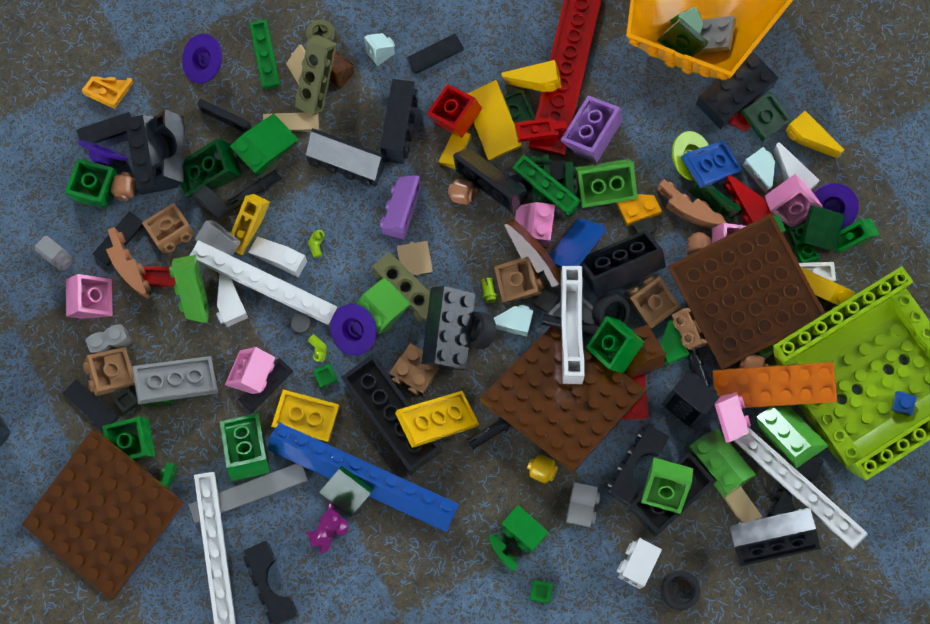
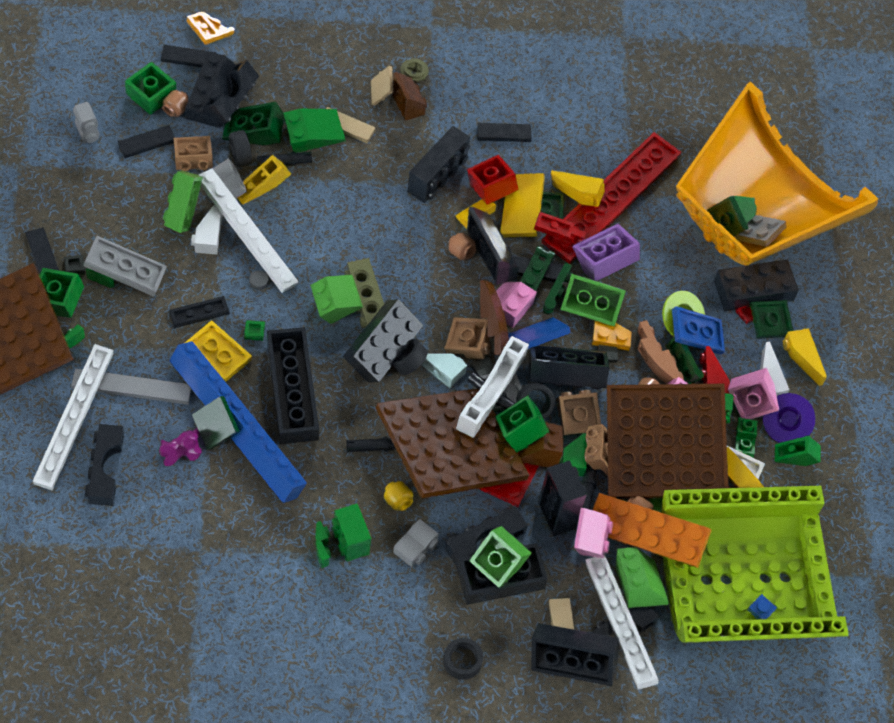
camera: 20 degrees right, 15 degrees down
(88, 297) = (94, 170): bright pink slope -> none
(102, 154) = (172, 69): dark purple hat -> none
(108, 371) = (74, 233): medium nougat plate -> none
(110, 339) = (89, 211): light grey brick -> none
(125, 265) = (140, 160): nougat slope -> none
(158, 276) = (158, 184): red tile -> none
(202, 58) = (301, 40): dark purple hat -> none
(224, 116) = (292, 90): black tile -> none
(244, 447) = (150, 349): green slope -> none
(250, 370) = (194, 291): bright pink slope -> none
(264, 54) = (356, 64): green tile -> none
(279, 256) = (274, 220): white slope -> none
(314, 243) = (310, 224): lime arm -> none
(315, 75) = (388, 92): olive brick -> none
(320, 348) = (263, 306): lime arm -> none
(345, 158) = (375, 170): slope -> none
(353, 329) = (300, 303): dark purple hat -> none
(379, 47) = (457, 102): light aqua slope -> none
(401, 206) = (401, 231): medium lavender slope -> none
(411, 372) = (331, 365): medium nougat plate -> none
(415, 257) = (390, 279): tan piece -> none
(436, 418) = (329, 405): yellow tile -> none
(488, 291) = (436, 337): lime pin -> none
(541, 591) = (337, 596): green tile -> none
(546, 185) = (538, 273): green tile -> none
(639, 563) = (438, 612): white brick -> none
(721, 462) = (564, 572): bright green slope -> none
(761, 168) = (742, 355): light aqua slope -> none
(822, 228) = (769, 428): dark green tile -> none

